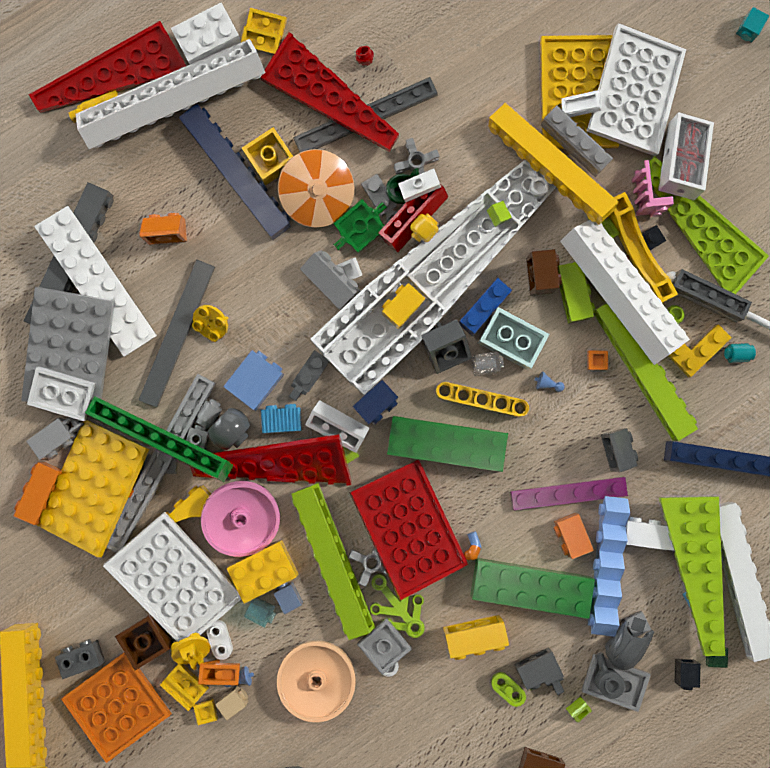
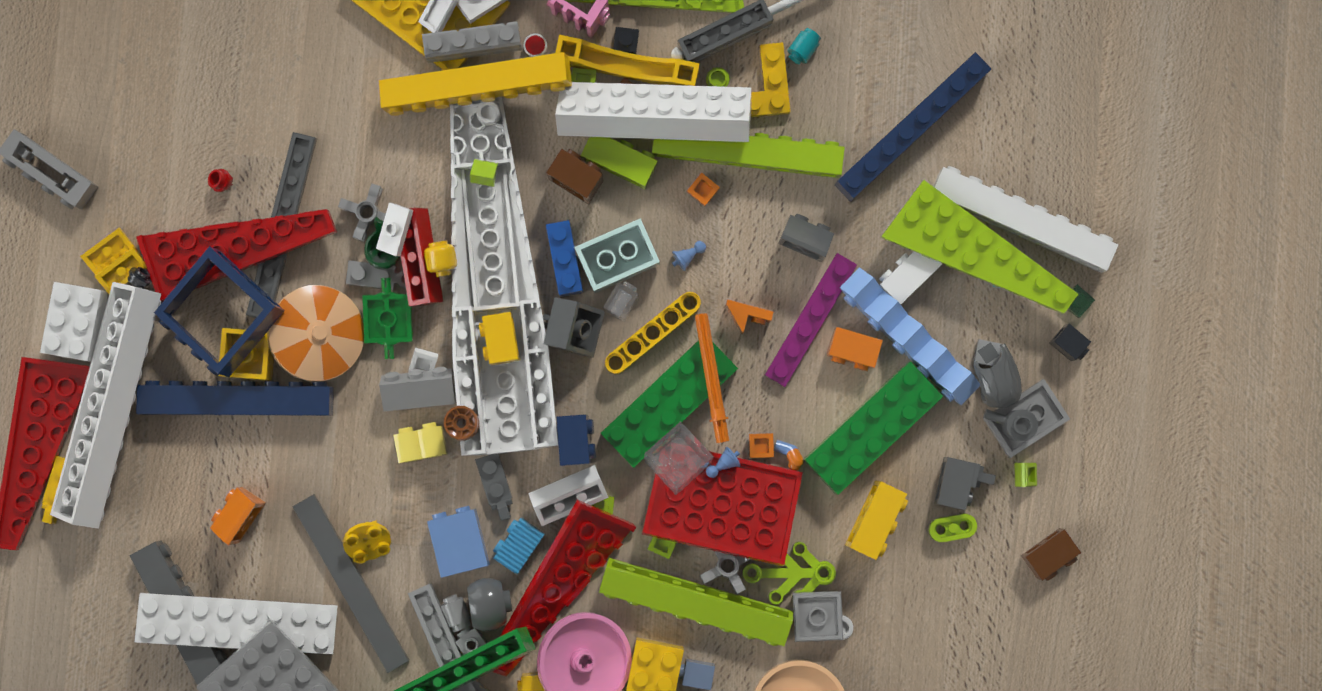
camera: 55 degrees left, 0 degrees up
(265, 53) = (139, 277): none -> black plate
(281, 147) = (248, 340): none -> dark blue window
(297, 308) = (420, 443): none -> light yellow brick
(330, 314) = (453, 417): none -> dark orange wheel
(350, 511) = (661, 547): none -> lime plate
(416, 478) = (678, 458): none -> clear brick
(438, 510) = (727, 460): none -> medium blue piece
(464, 524) = (761, 445): none -> orange plate
(467, 478) = (717, 410): none -> orange axle
(539, 445) = (740, 313): none -> orange slope
(605, 182) = (535, 45): none -> red tile

